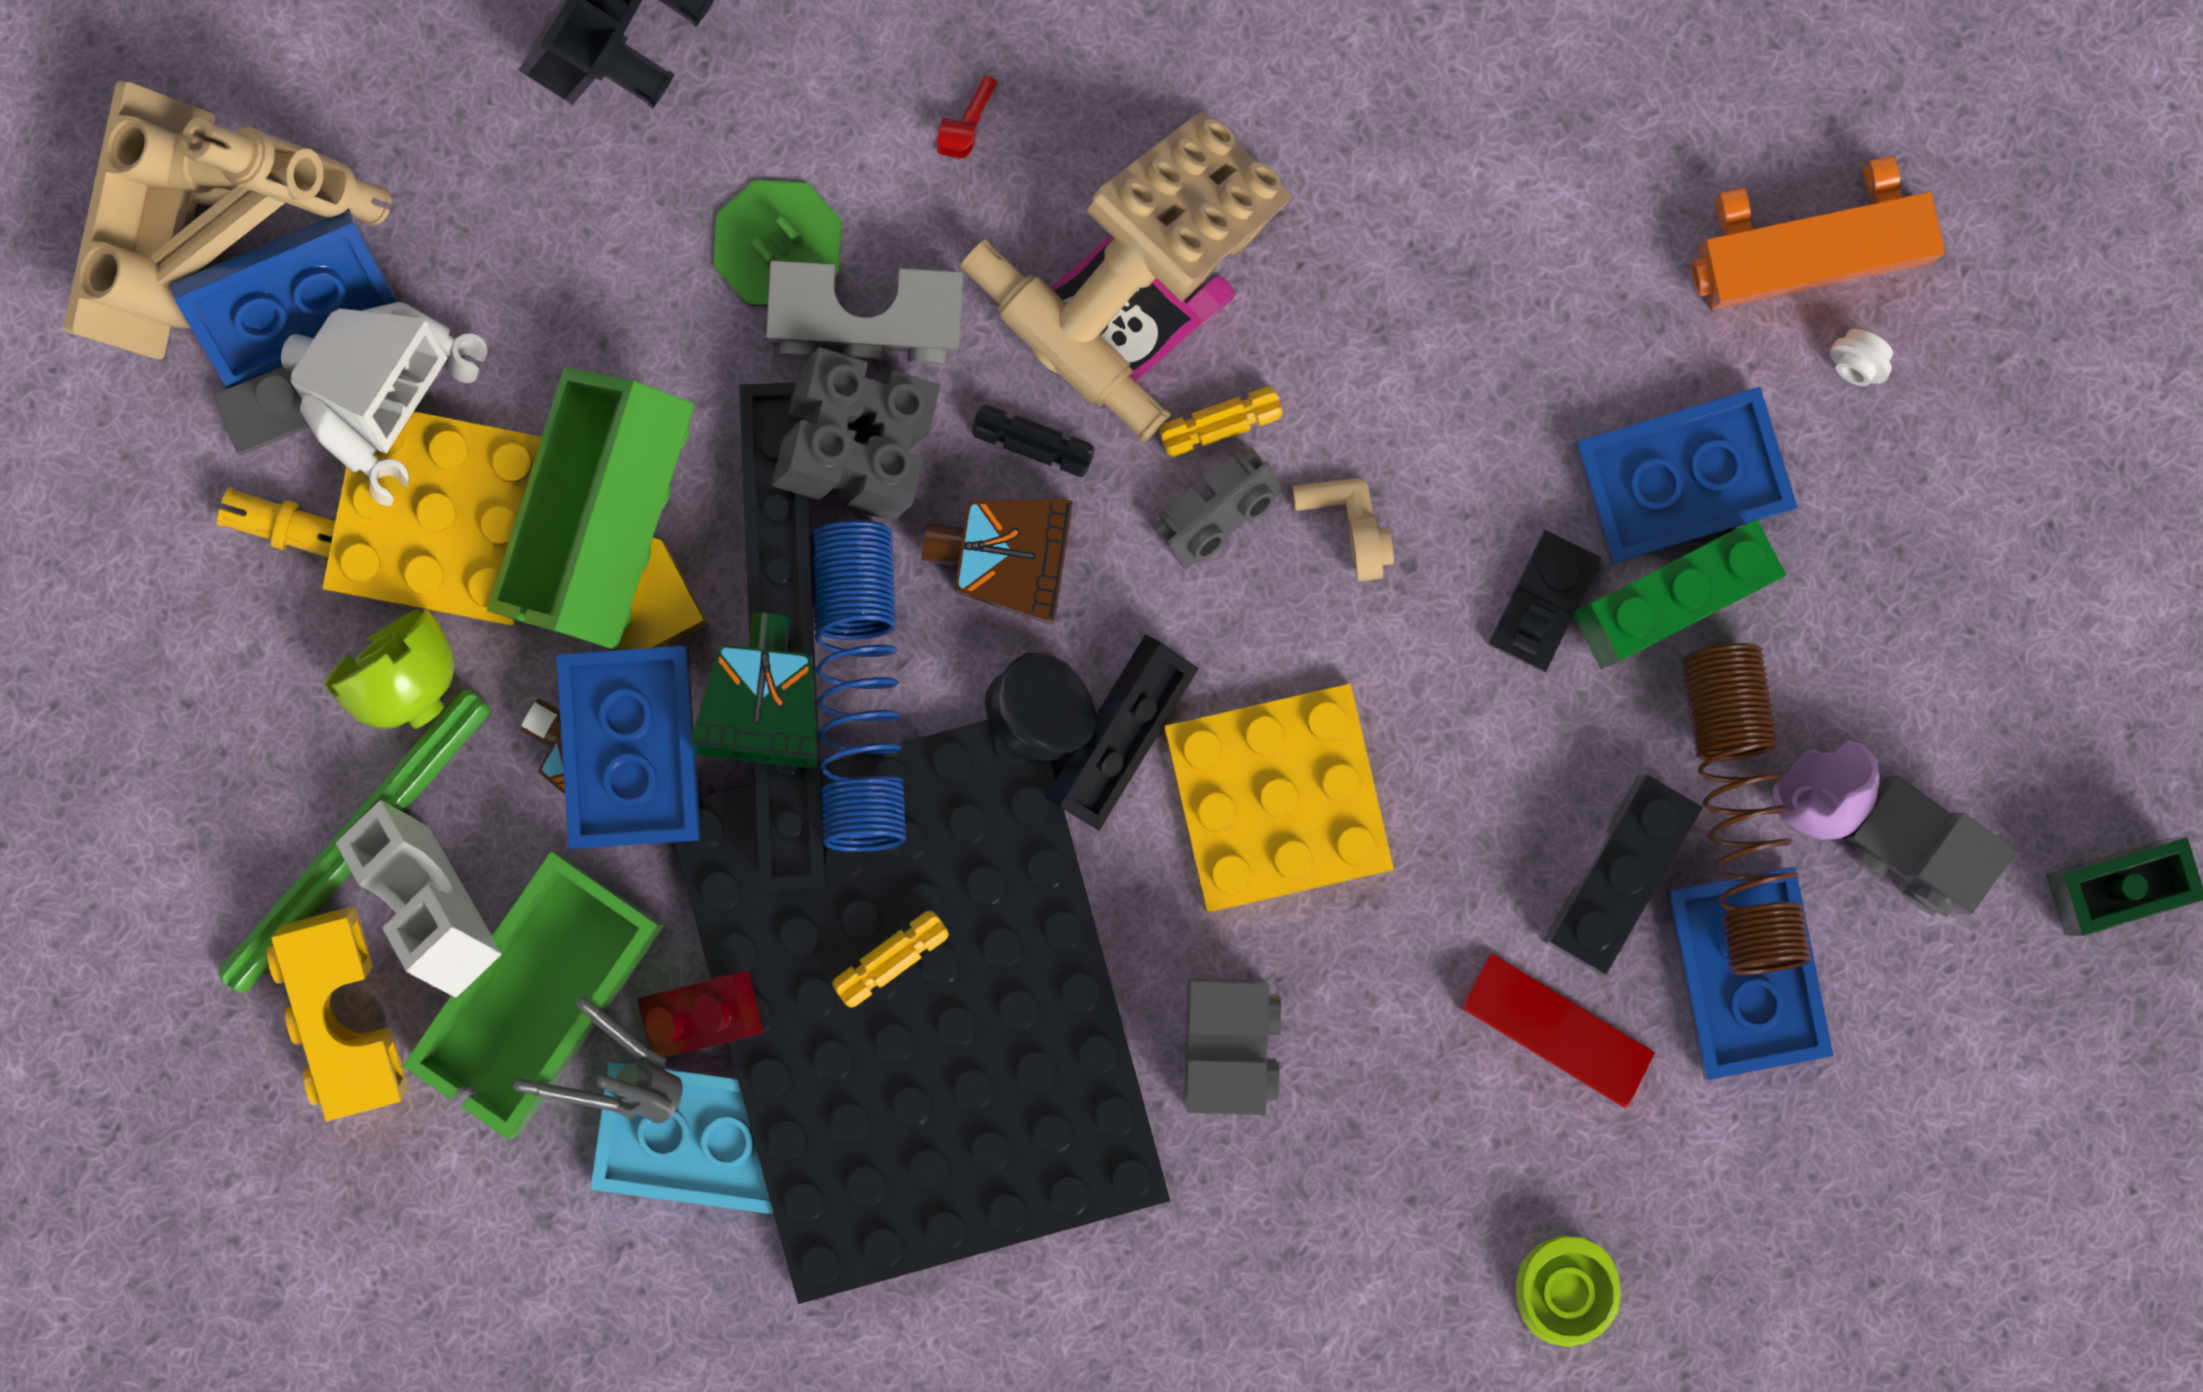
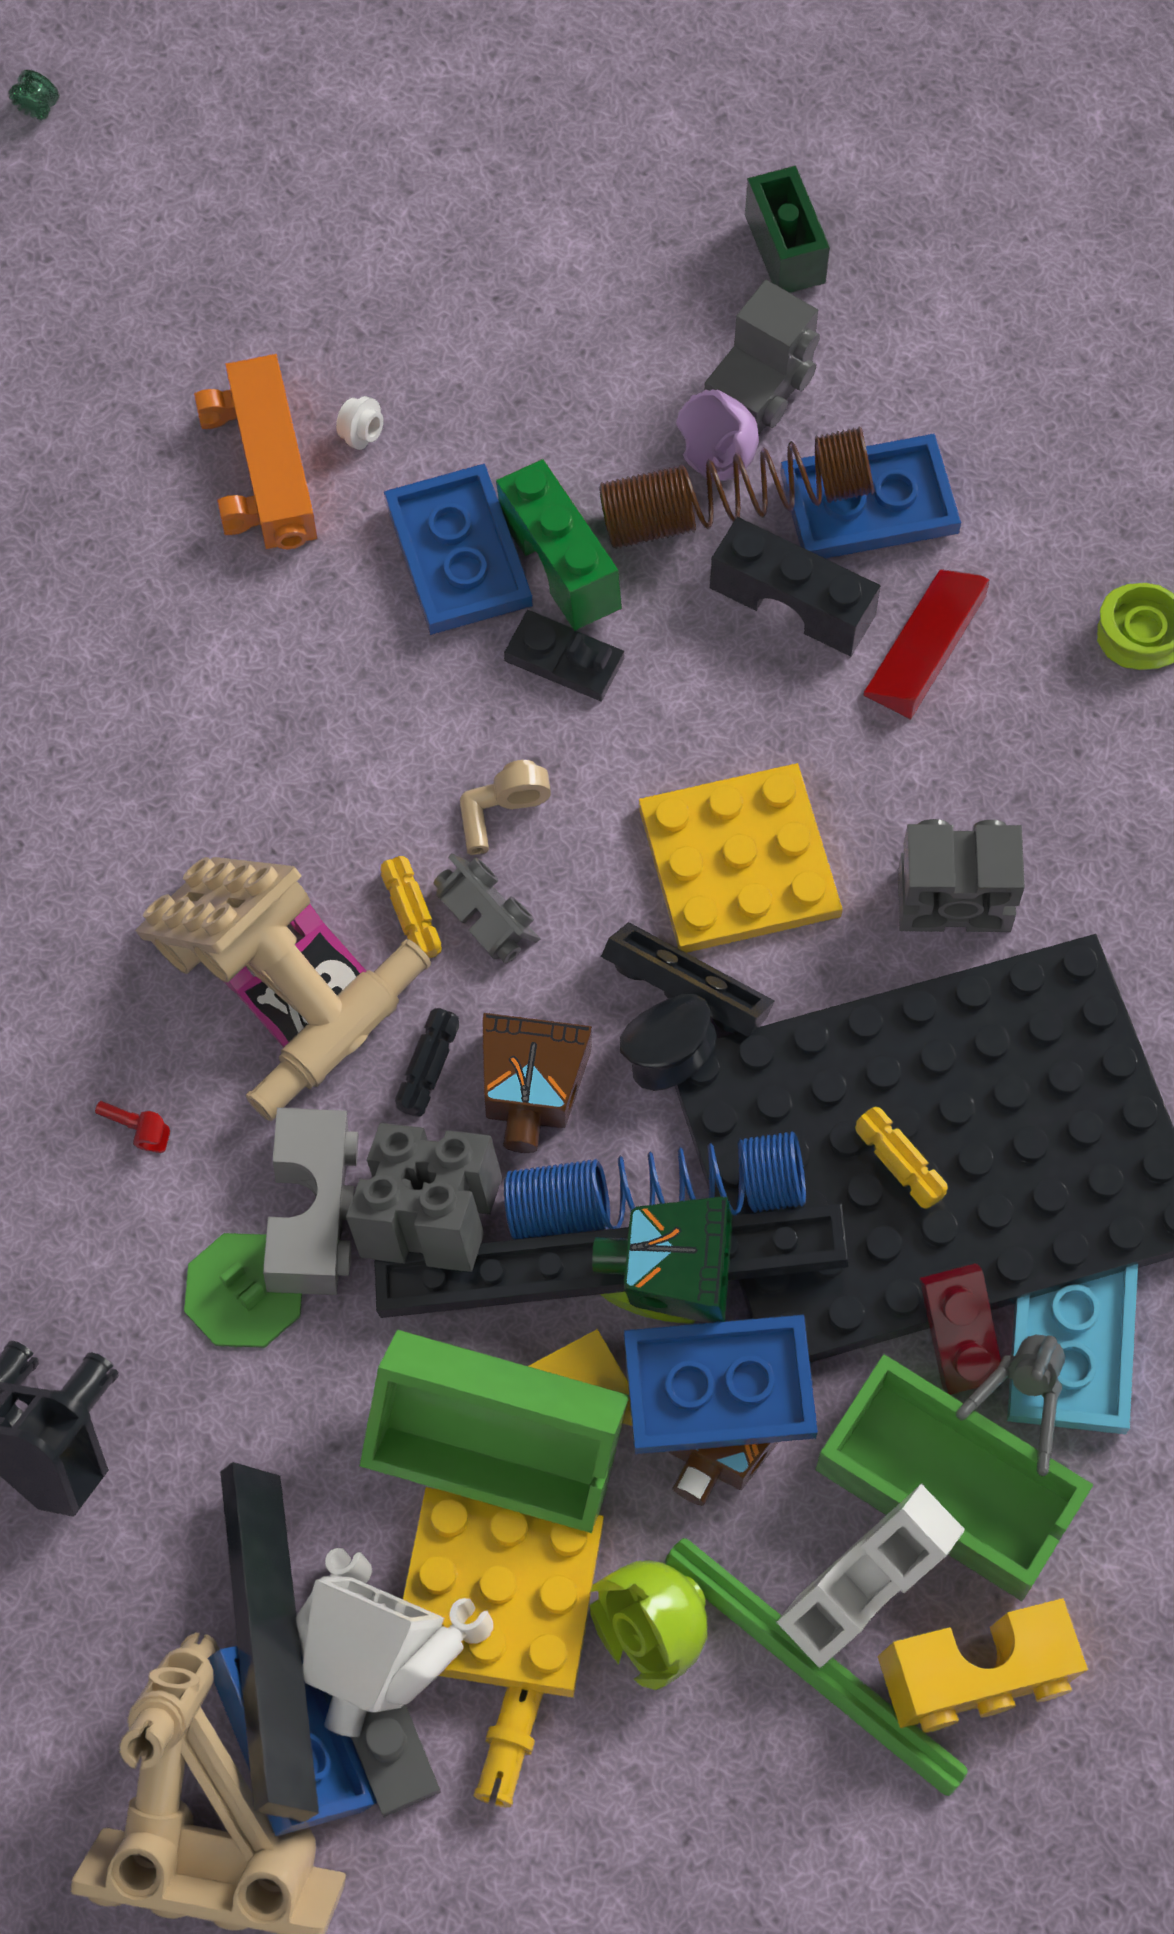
camera: 90 degrees left, 20 degrees down
(373, 273) = (268, 1644): none -> black tile

